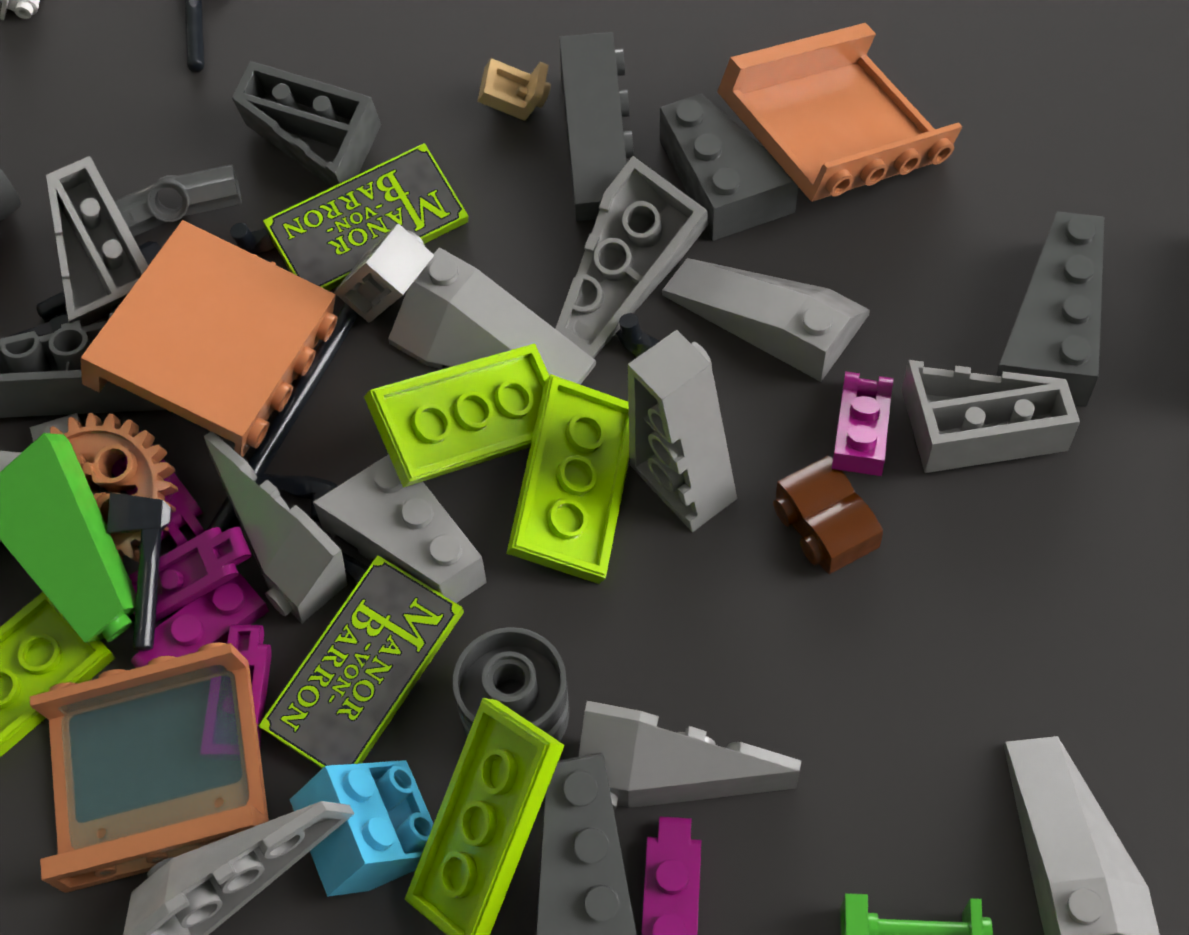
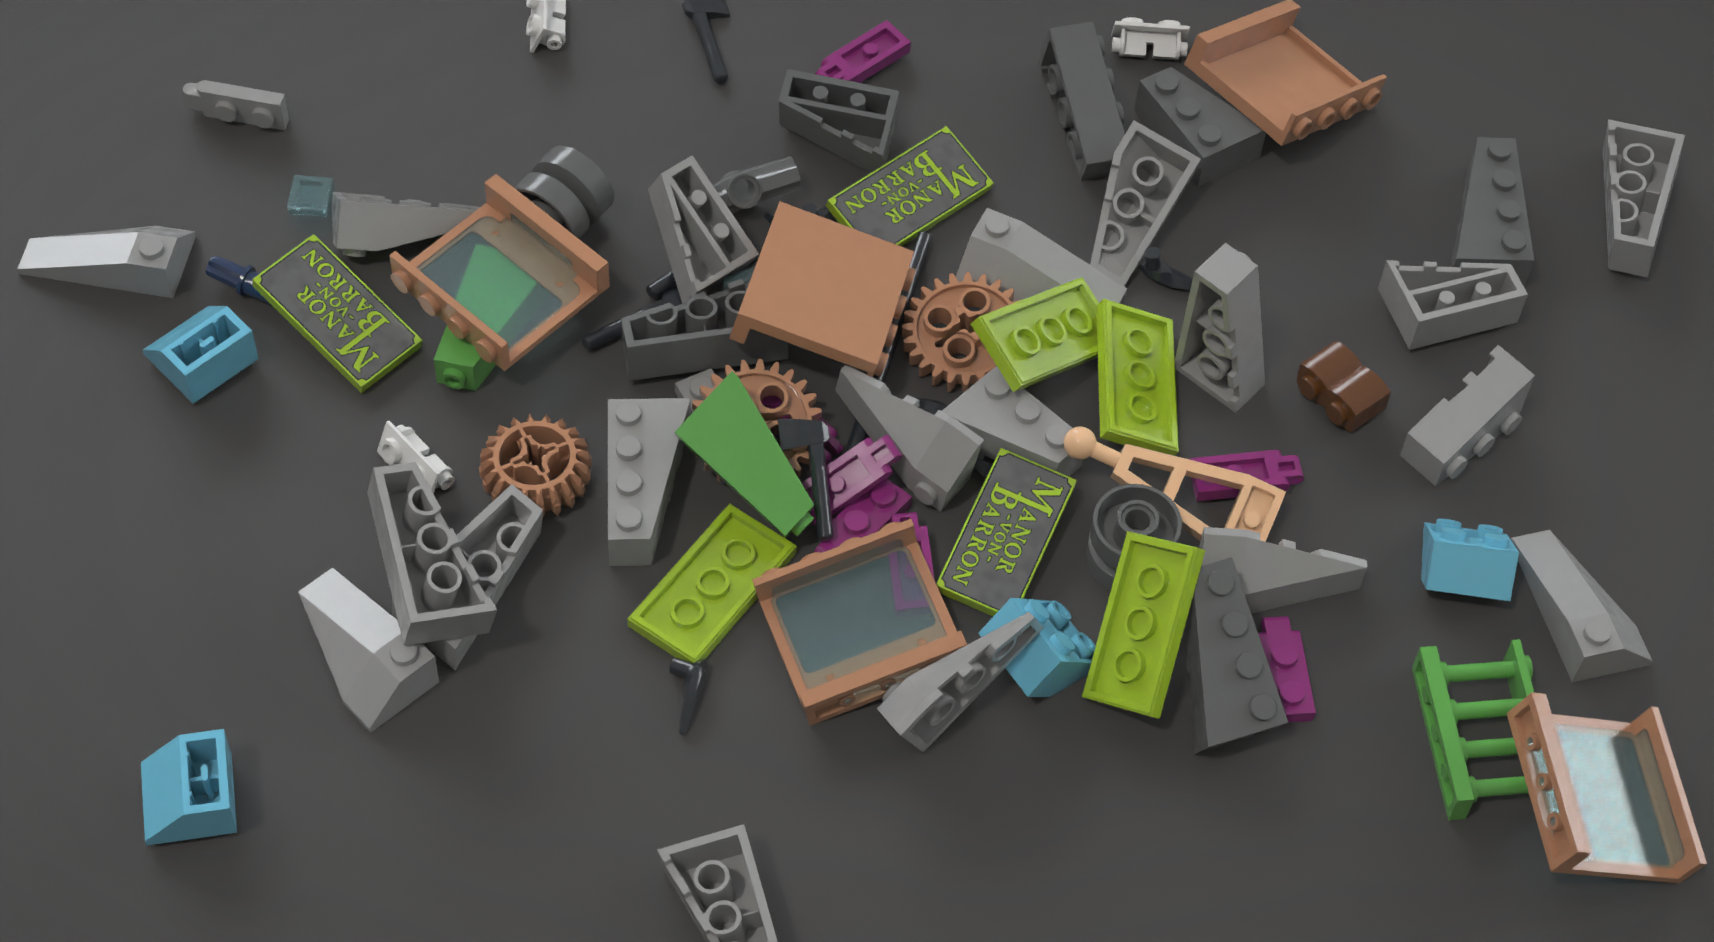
camera: 15 degrees left, 5 degrees down
(359, 52) = (866, 54): none -> magenta hinge
(370, 362) = (949, 306): none -> nougat gear
(384, 273) = (947, 232): light grey brick -> none
(513, 89) = (1006, 77): tan bracket -> none
(668, 681) = (1254, 506): none -> light nougat plate
(678, 51) = (1164, 37): none -> white hinge
(680, 618) = (1263, 465): none -> magenta hinge
(780, 316) = (1276, 242): light grey wedge -> none
(863, 424) = (1356, 314): magenta plate -> none
(939, 771) = (1468, 560): none -> medium azure slope
(977, 579) = (1470, 420): none -> light grey wedge

